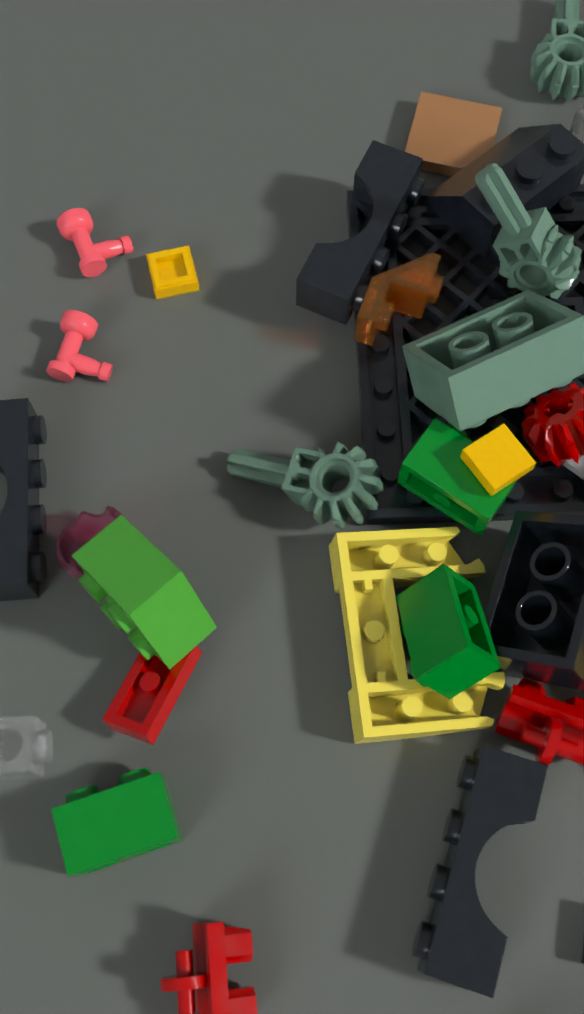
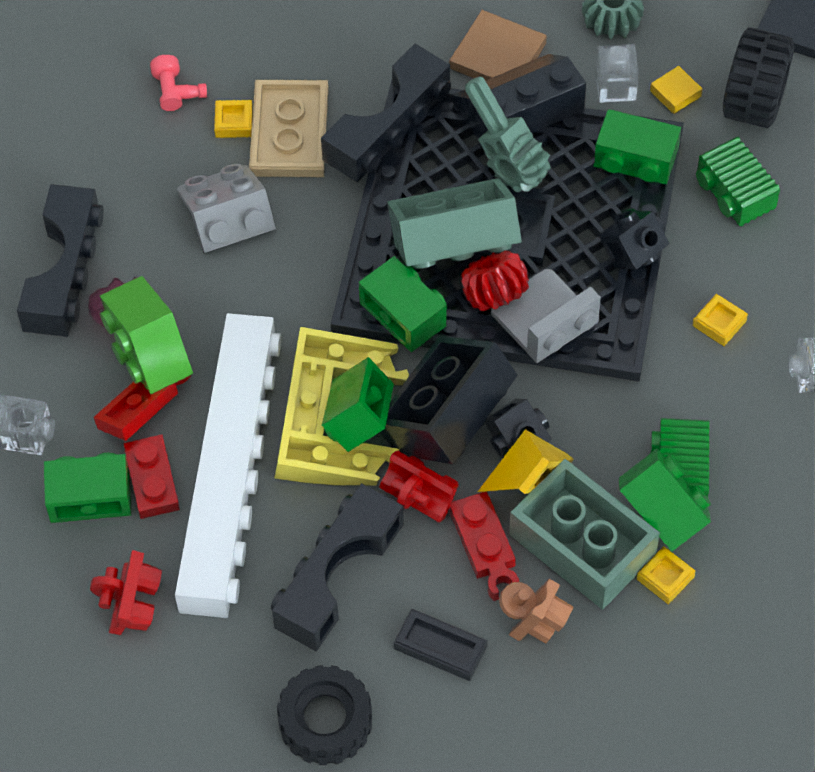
camera: 15 degrees right, 10 degrees down
(77, 328) = (145, 147): coral piece -> none
(196, 385) = (227, 206): none -> light grey bracket
(196, 780) = (151, 476): none -> red plate
(241, 272) = (288, 128): none -> tan tile
(296, 760) = (226, 467): none -> white brick
(310, 478) = (301, 290): sand green gear -> none
(401, 290) = (407, 161): clear orange slope -> none
(497, 459) = (428, 291): yellow tile -> none

